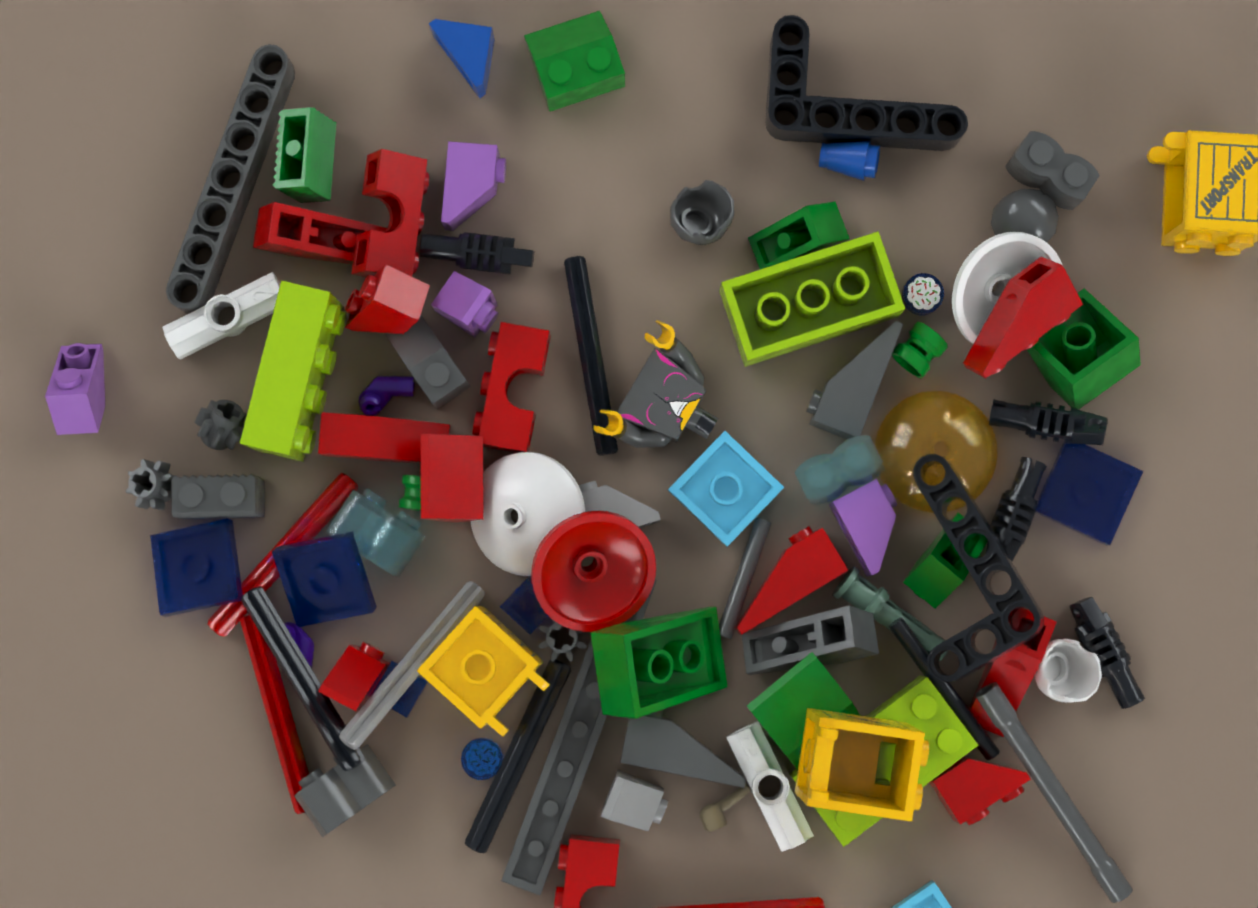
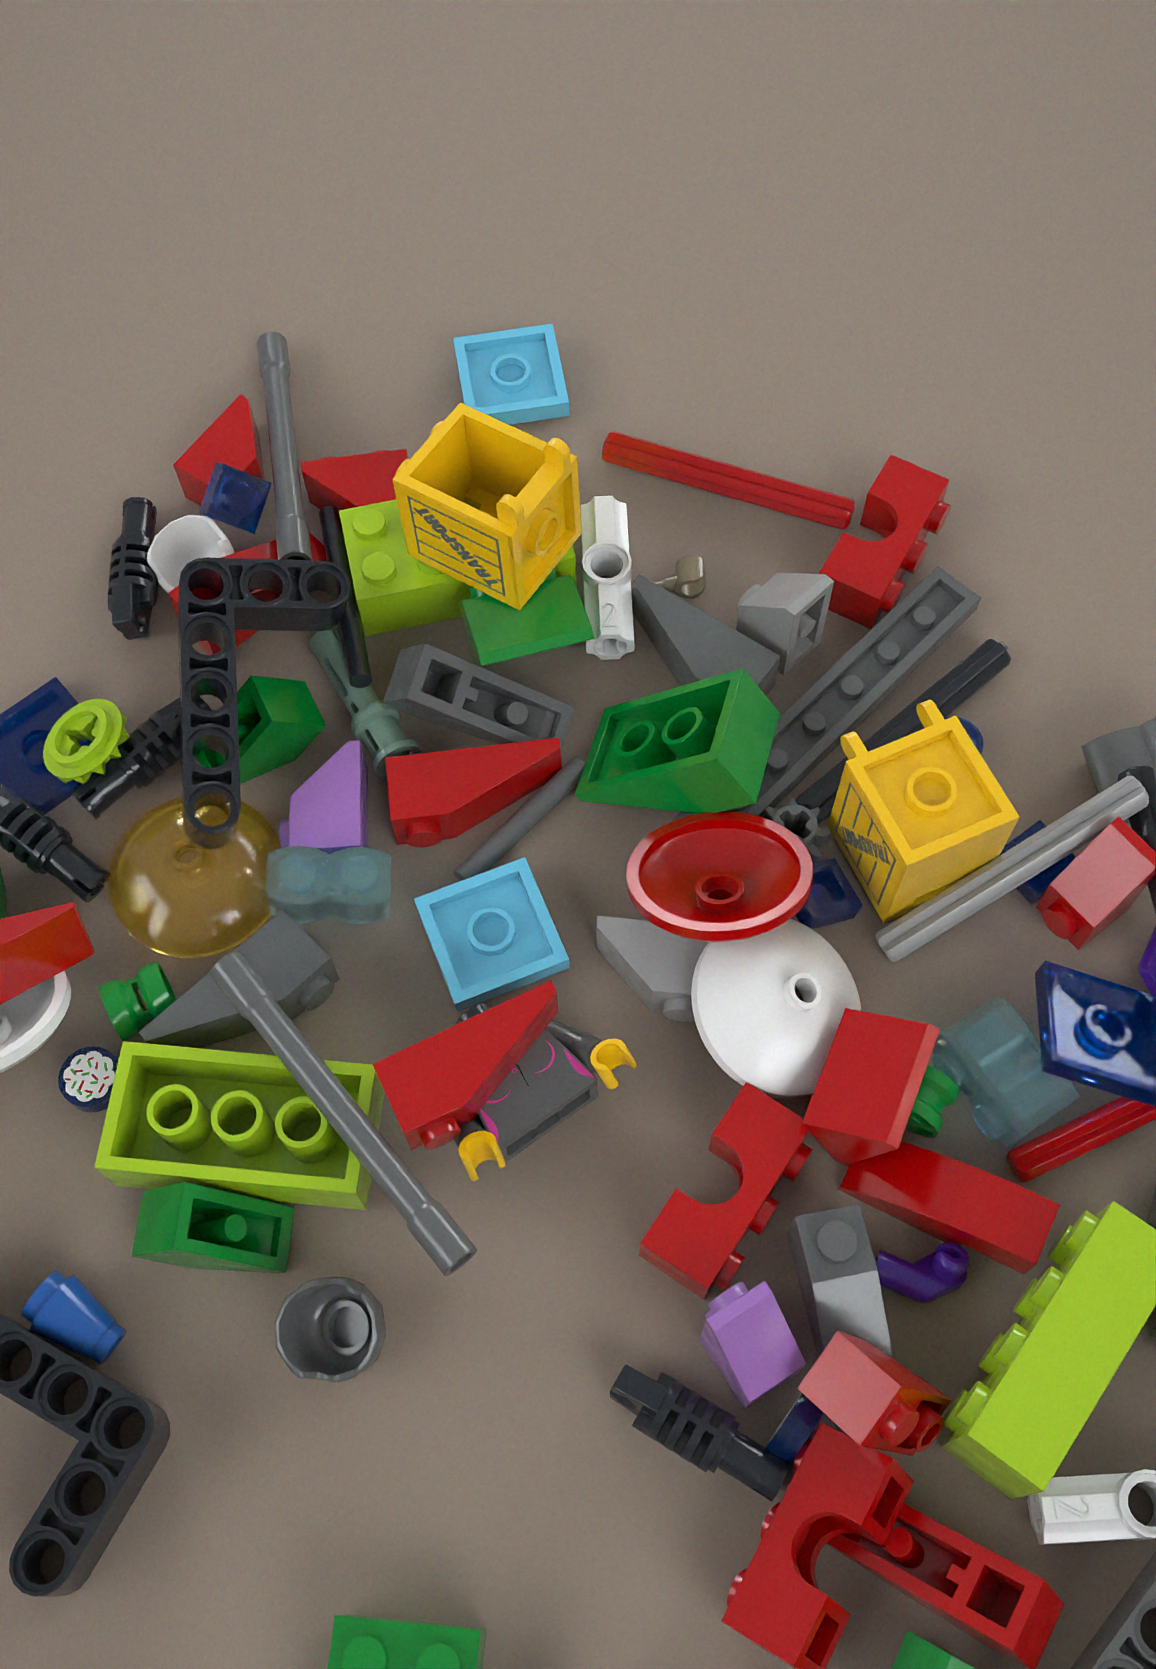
camera: 155 degrees left, 20 degrees down
(426, 270) = (794, 1429): none -> clear blue tile
(470, 180) = (663, 1557): medium lavender slope -> none
(589, 351) = (589, 1212): black axle -> none
(699, 370) = (455, 1072): none -> red slope
(834, 361) = (424, 1216): none -> dark grey piece
(1060, 727) = (235, 498): none -> clear blue plate
(1062, 485) = (90, 720): none -> lime gear
(1089, 766) = (228, 440): none -> red slope

